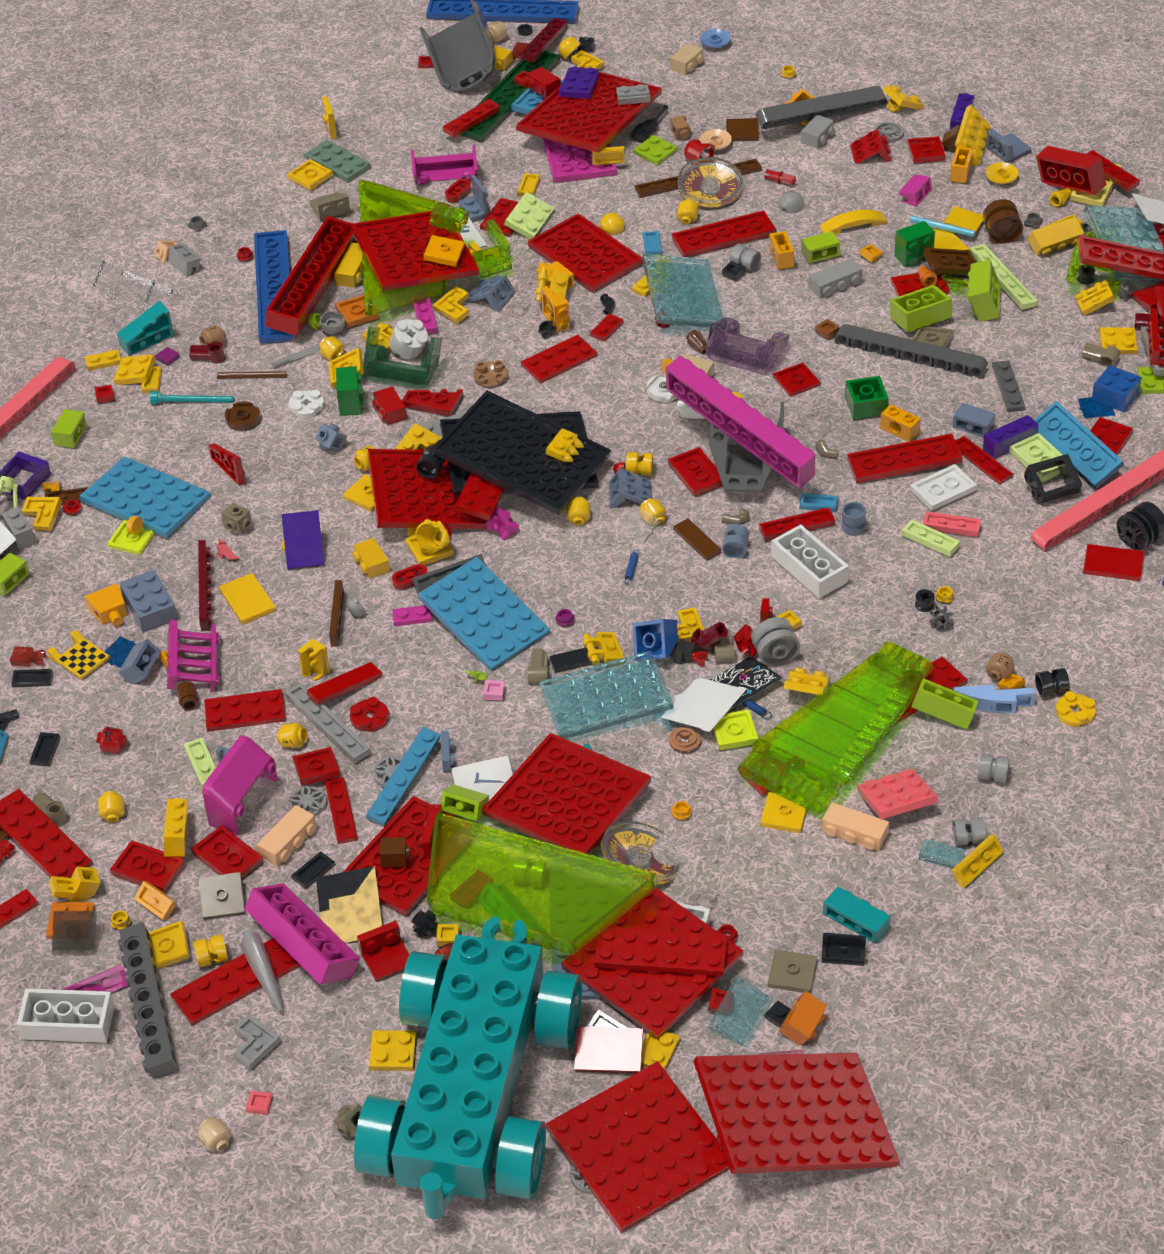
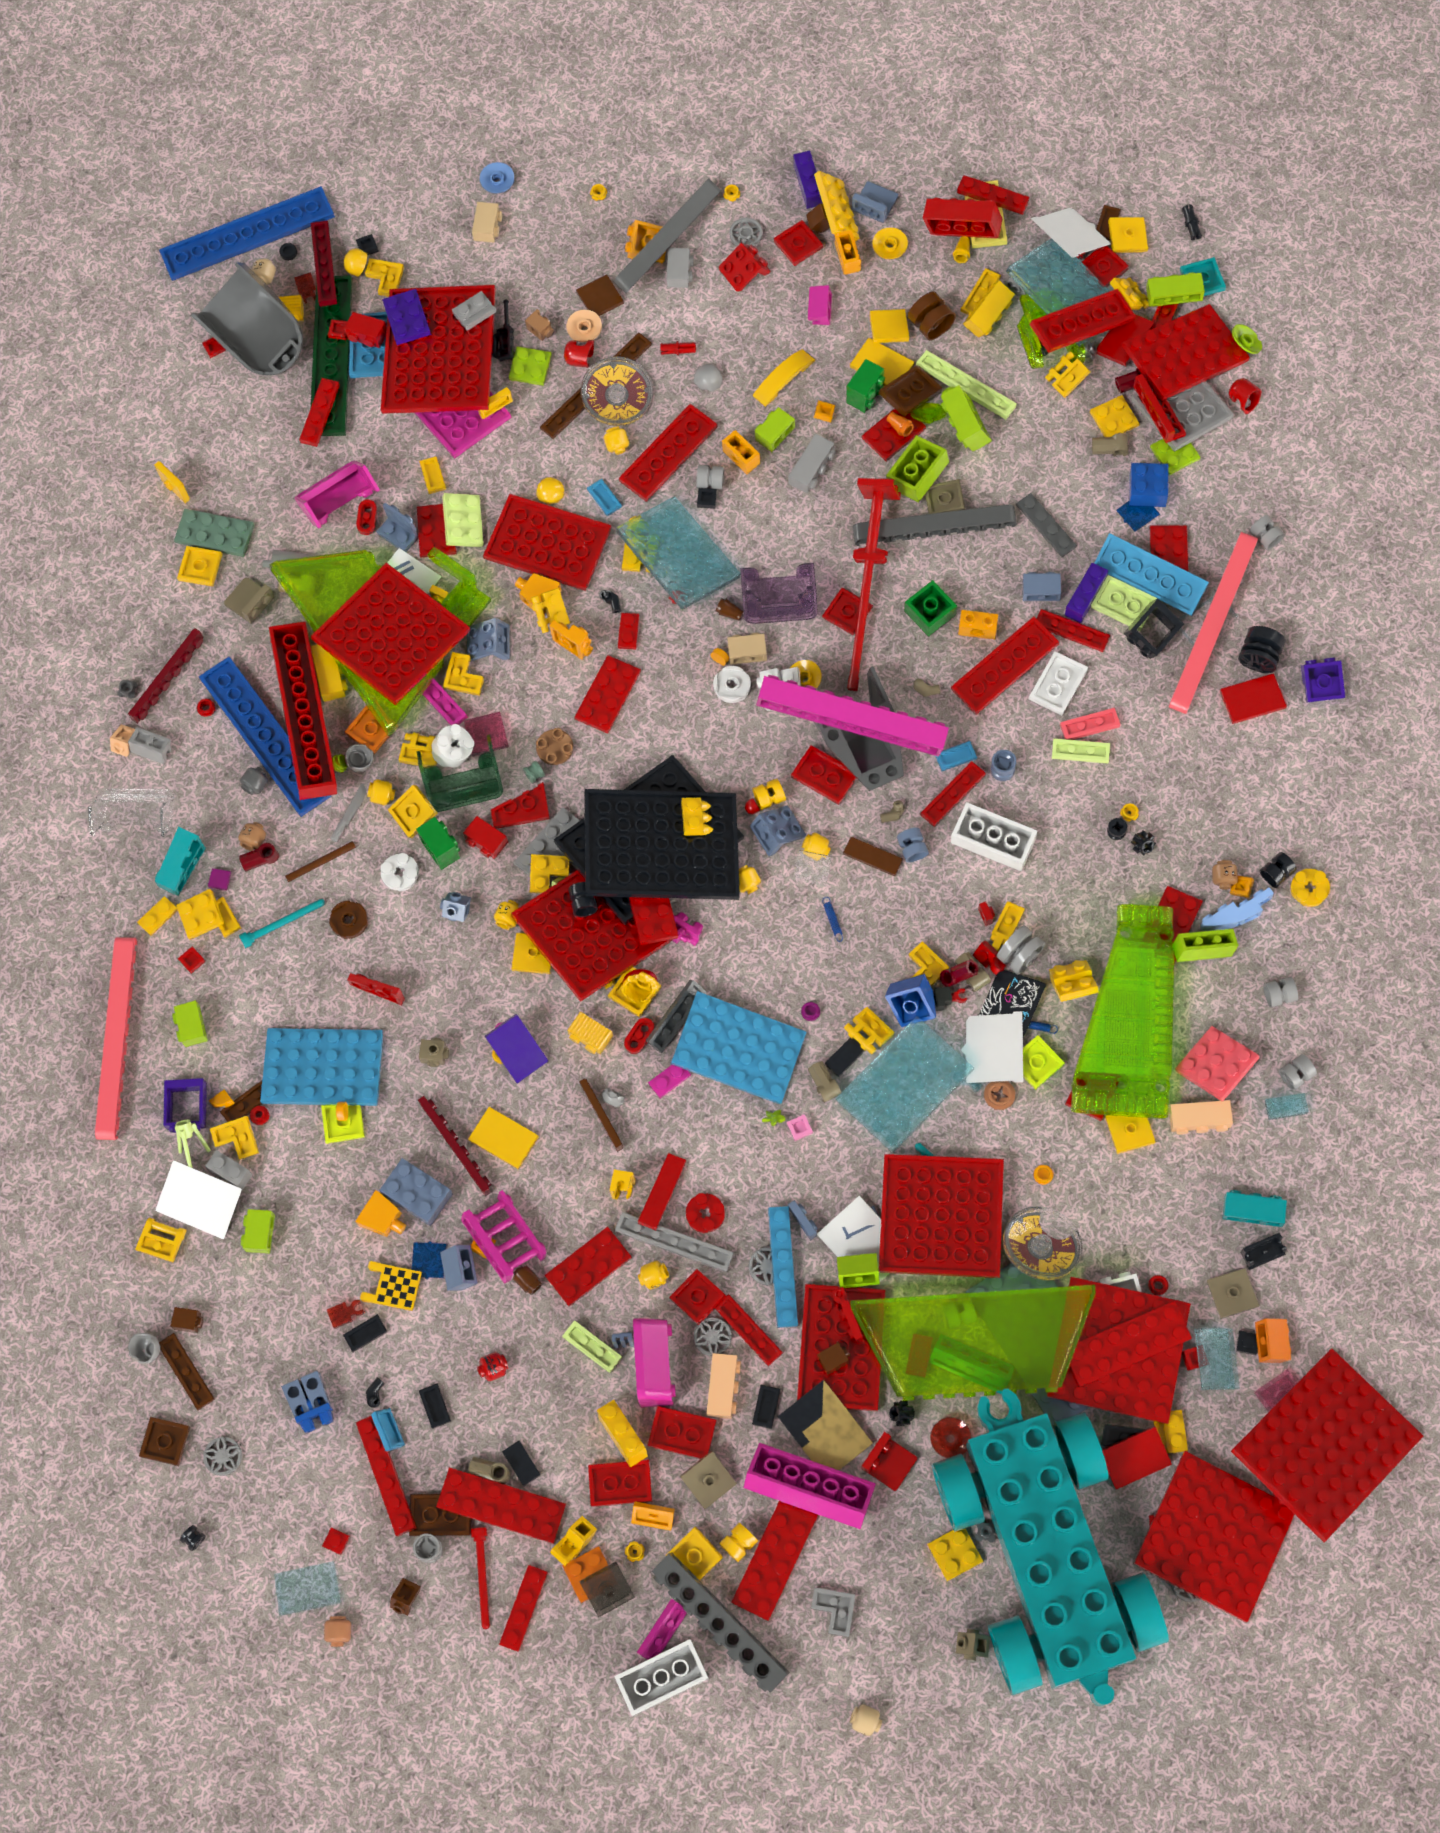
camera: 25 degrees left, 25 degrees up
(80, 818) = (521, 1463): none -> black tile
(111, 806) = (543, 1438): yellow head -> none
(224, 550) = (444, 1092): coral piece -> none
(230, 224) = (162, 680): none -> dark red plate
(242, 306) = (253, 780): none -> dark grey head
(259, 1102) = (878, 1665): coral tile -> none
(261, 966) = (795, 1536): light grey piece -> none
(444, 250) = (423, 623): light orange plate -> none
(446, 933) = (927, 1413): yellow plate -> none
(449, 217) = (402, 577): clear neon green brick -> none
(450, 345) = (483, 726): none -> clear pink plate
(460, 381) = (533, 772): none -> sand green wheel
(547, 328) = (568, 663): black plate -> none
(827, 329) = (840, 533): dark orange plate -> none
(874, 306) = (877, 491): none -> red piece
(903, 99) = (739, 185): yellow plate -> none
(943, 226) = (874, 345): medium azure bar -> none
(977, 861) = (1320, 1099): yellow tile -> none
(1033, 219) = (952, 289): flat silver plate -> none

